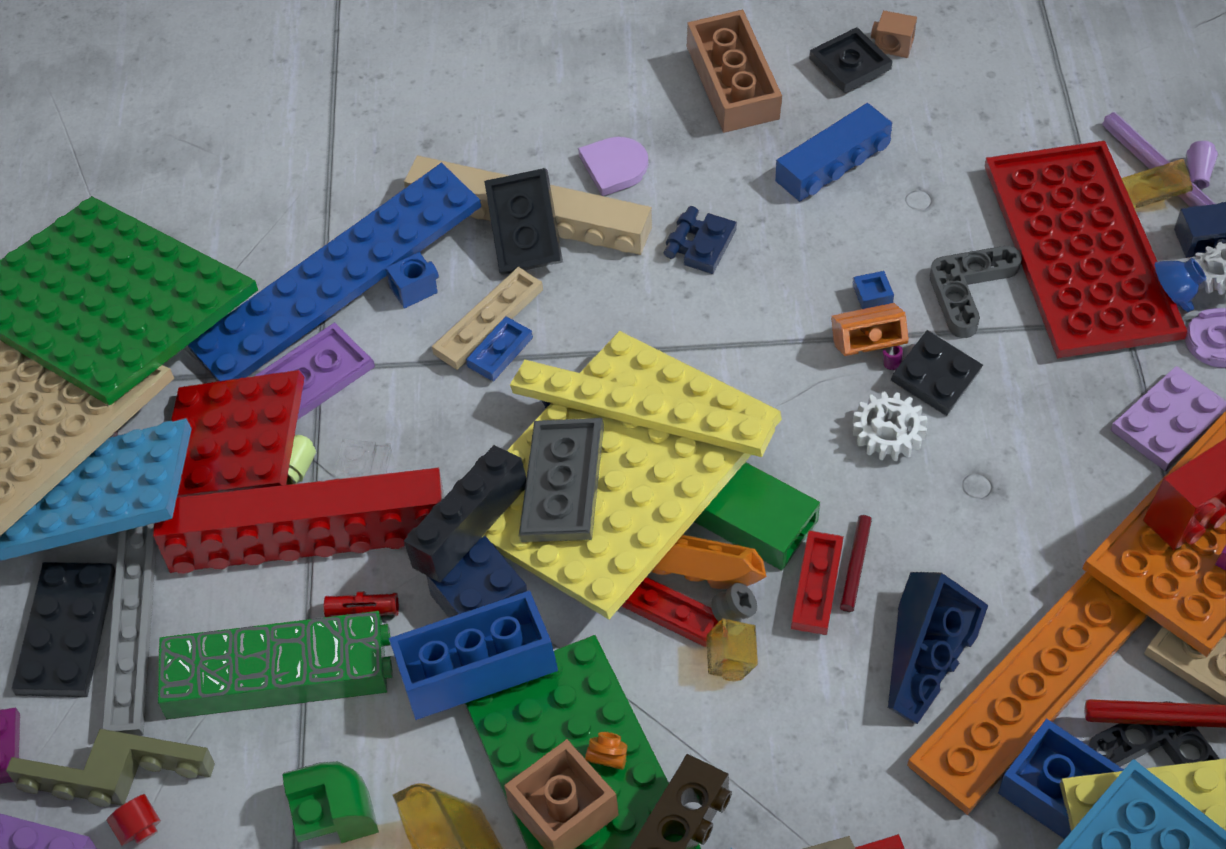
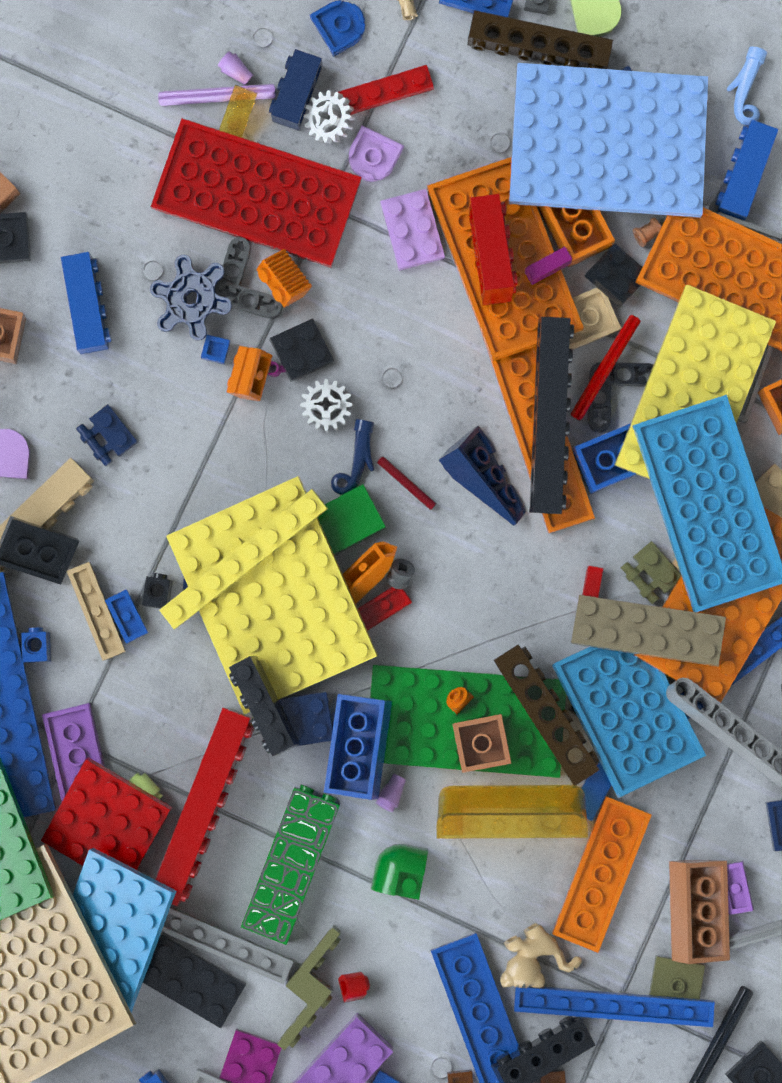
camera: 65 degrees left, 30 degrees up
(385, 603) = (276, 794): red pin -> none
(431, 741) = (391, 793): none -> lavender cone
(549, 353) = (157, 602): none -> black brick
(562, 480) = (268, 634): dark grey tile -> none
(731, 650) = (430, 592): clear yellow brick -> none
(817, 582) = (409, 514): red plate -> none
(858, 493) = (362, 454): none -> dark blue plant
(930, 228) = (176, 294): none -> plate
(1006, 310) = (283, 278): none -> orange brick
(1063, 665) = (550, 415): none -> black brick
(1180, 280) = (324, 155): blue piece -> none

